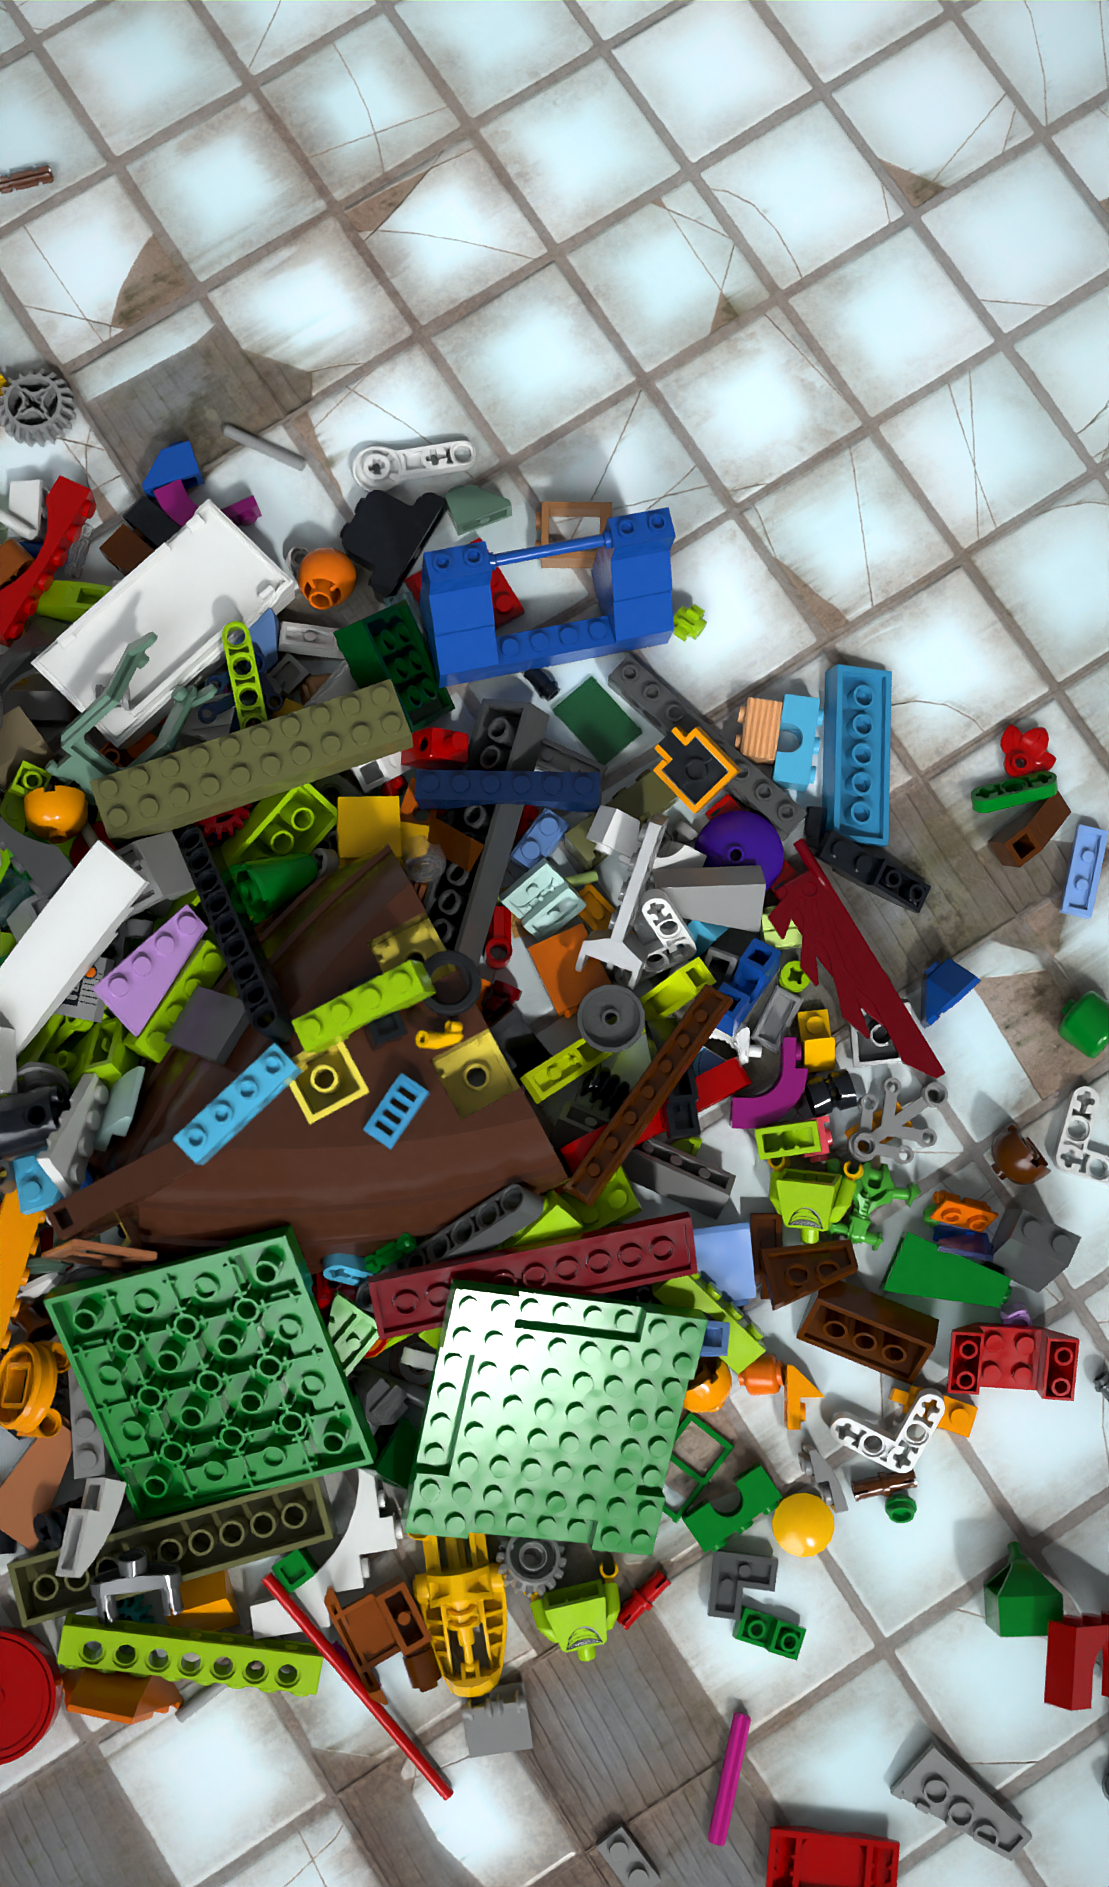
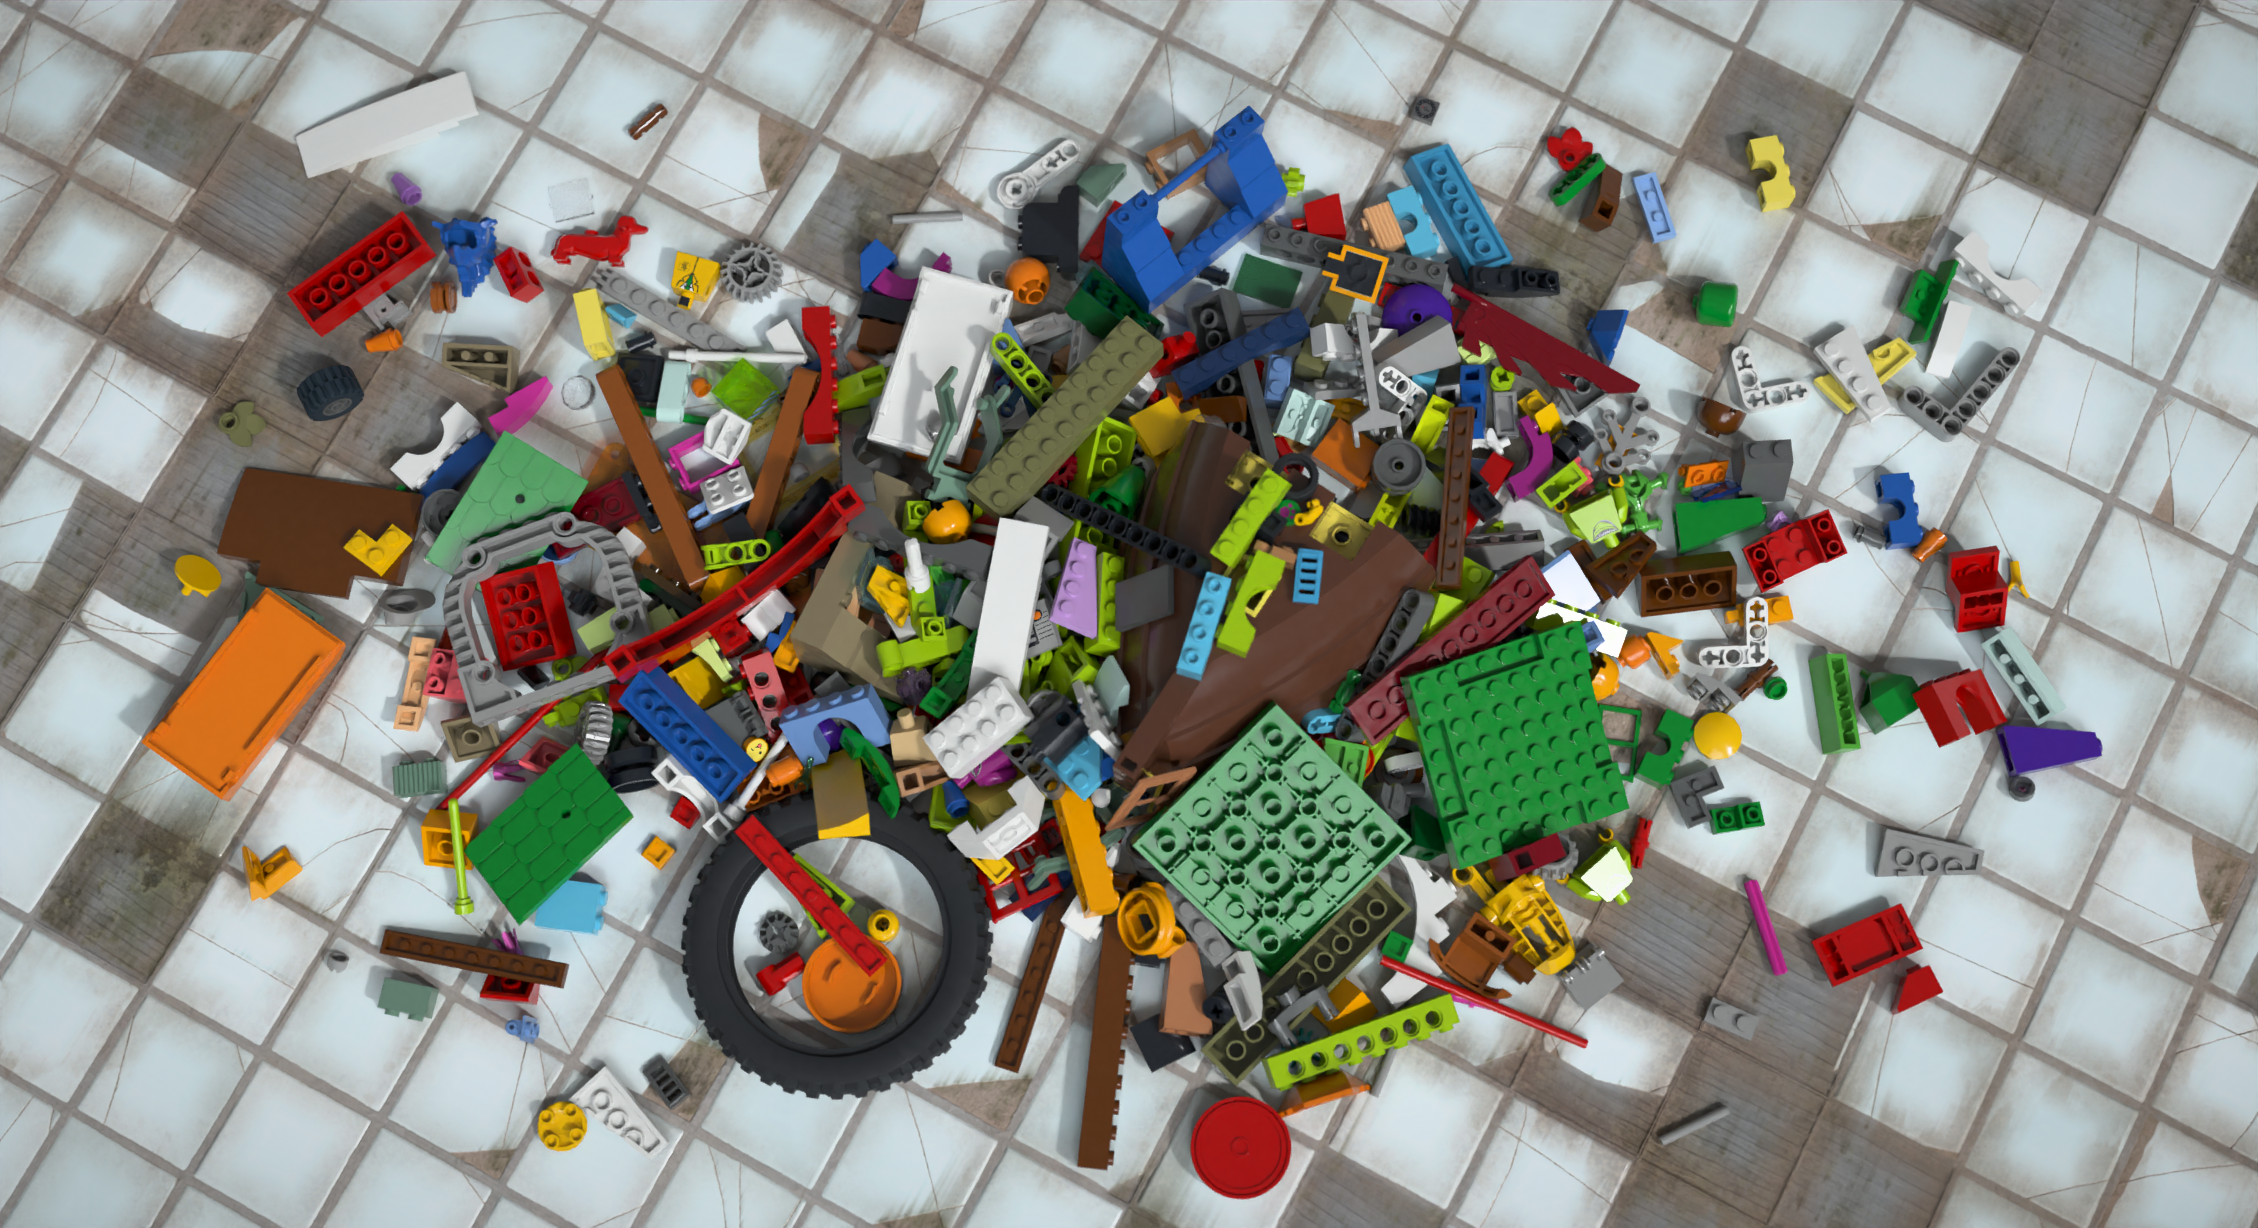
camera: 25 degrees left, 5 degrees down
(97, 570) = (860, 361): none -> nougat cone
(274, 1132) = (1262, 575): none -> lime arch
(379, 1069) = (1280, 552): none -> medium nougat plate
(417, 1019) = (1288, 510): none -> green tile
(497, 1558) = (1527, 857): none -> dark red slope
(591, 884) = (1334, 389): none -> light grey hinge
(697, 683) = (1322, 218): none -> red torso
(887, 619) = (1425, 110): none -> flat silver tile
(958, 1565) = (1834, 704): none -> bright green brick

